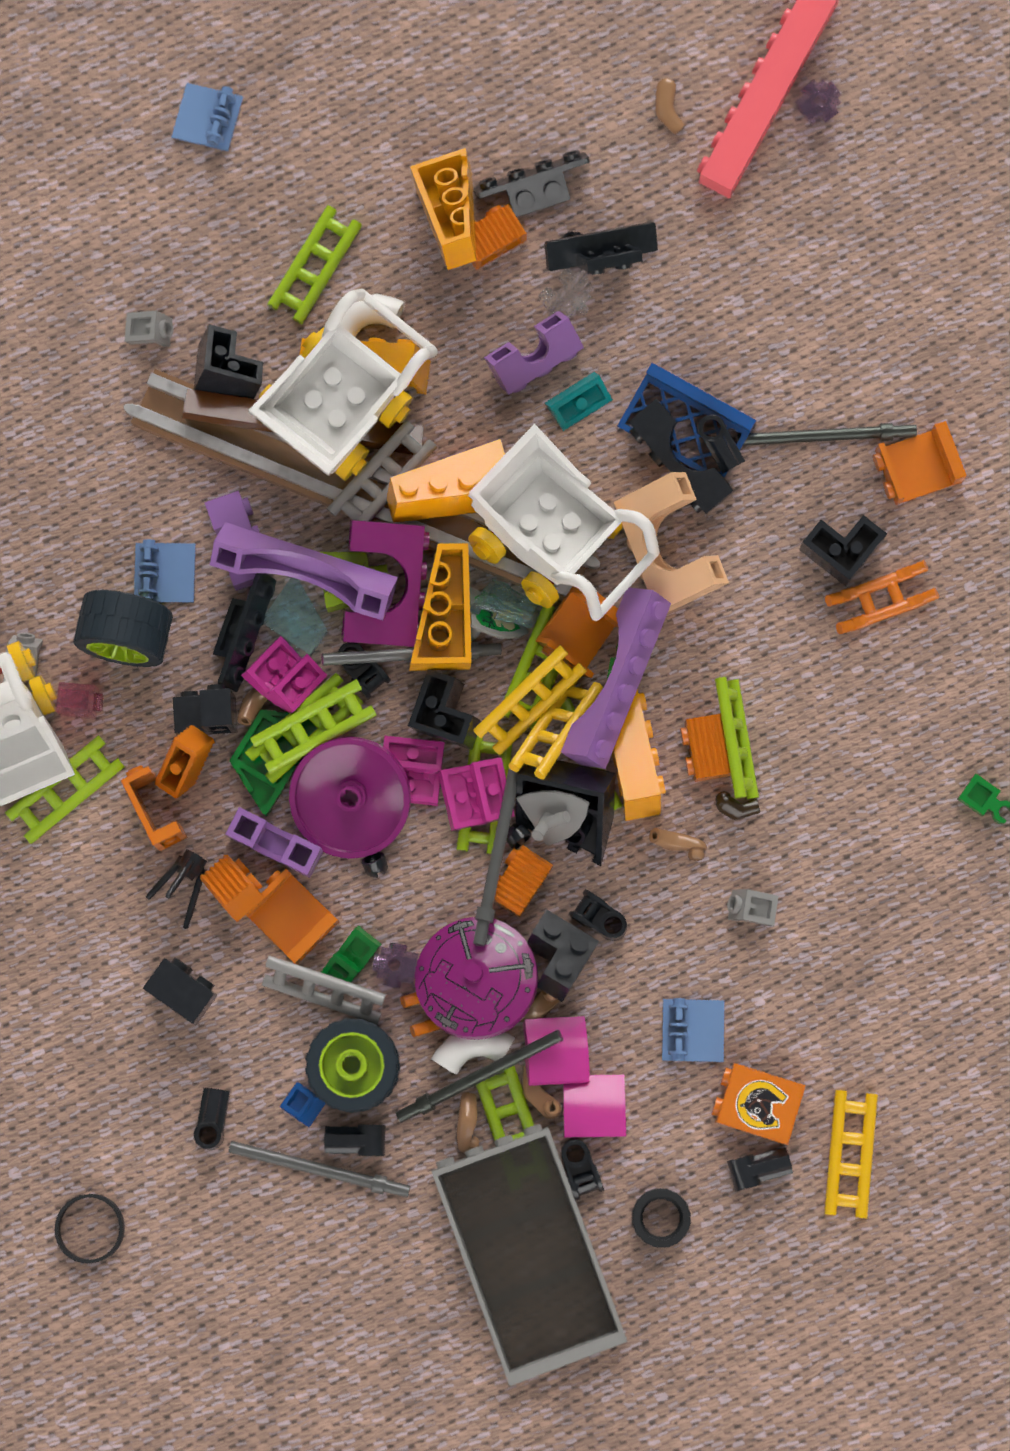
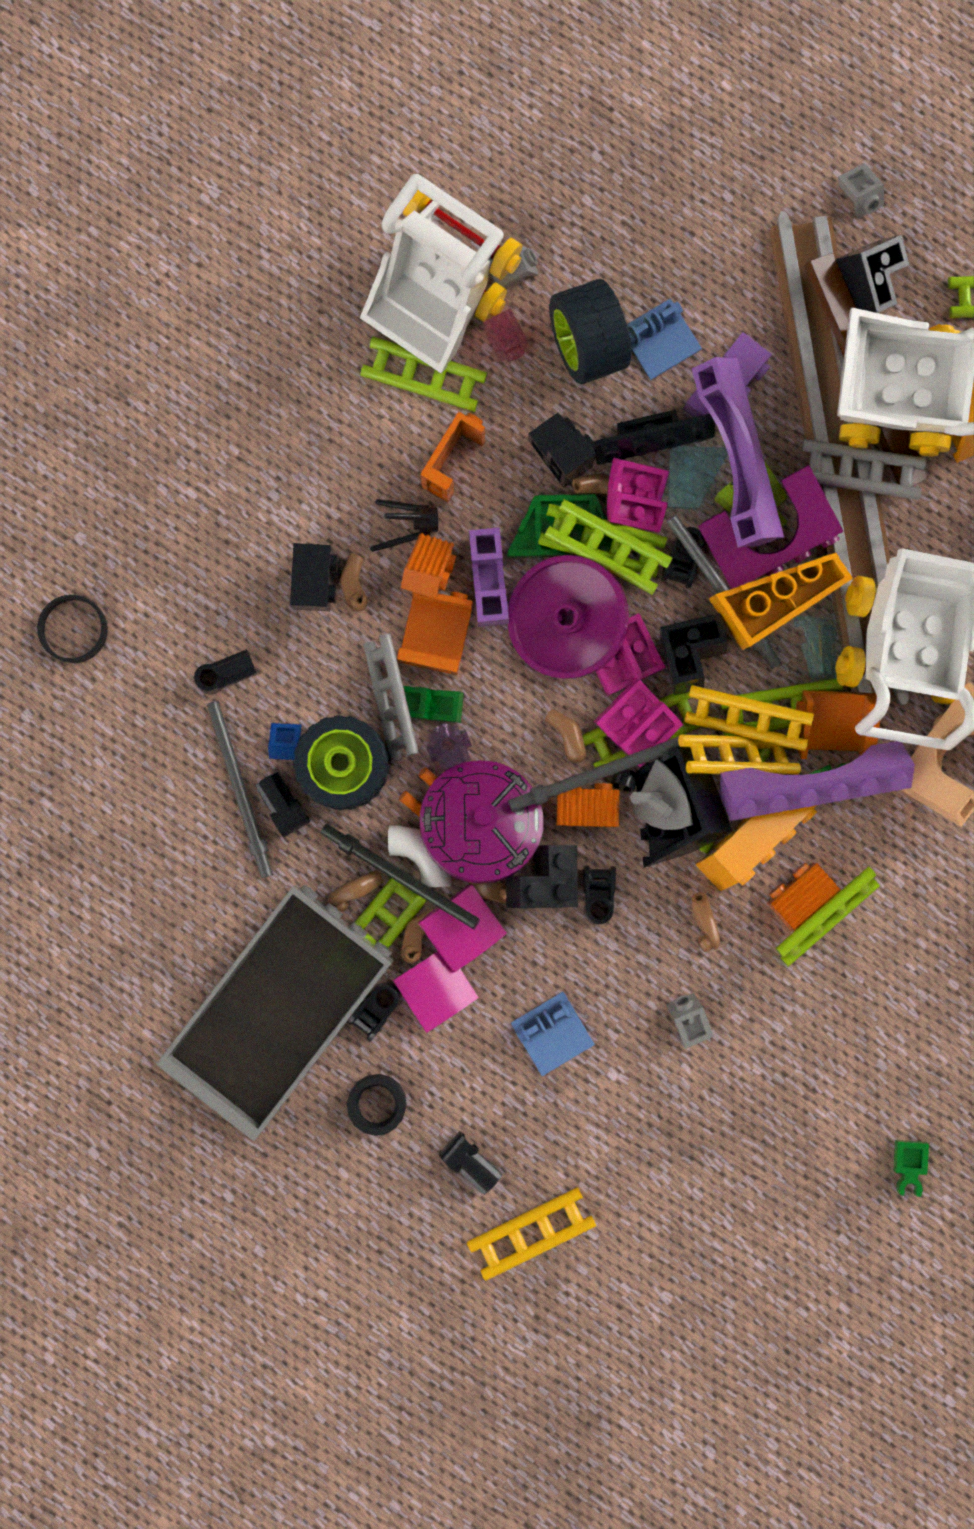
camera: 55 degrees right, 5 degrees up
(184, 761) = (509, 456): orange brick -> none
(205, 964) = (350, 583): none -> medium nougat arm
(379, 864) = (519, 674): black hinge -> none
(441, 486) = (886, 523): light orange wedge -> none
(449, 856) = (571, 735): none -> medium nougat arm
(487, 623) = (792, 638): shield -> none
(734, 809) = (765, 952): dark brown arm -> none
(758, 1103) = (524, 1129): orange panel -> none

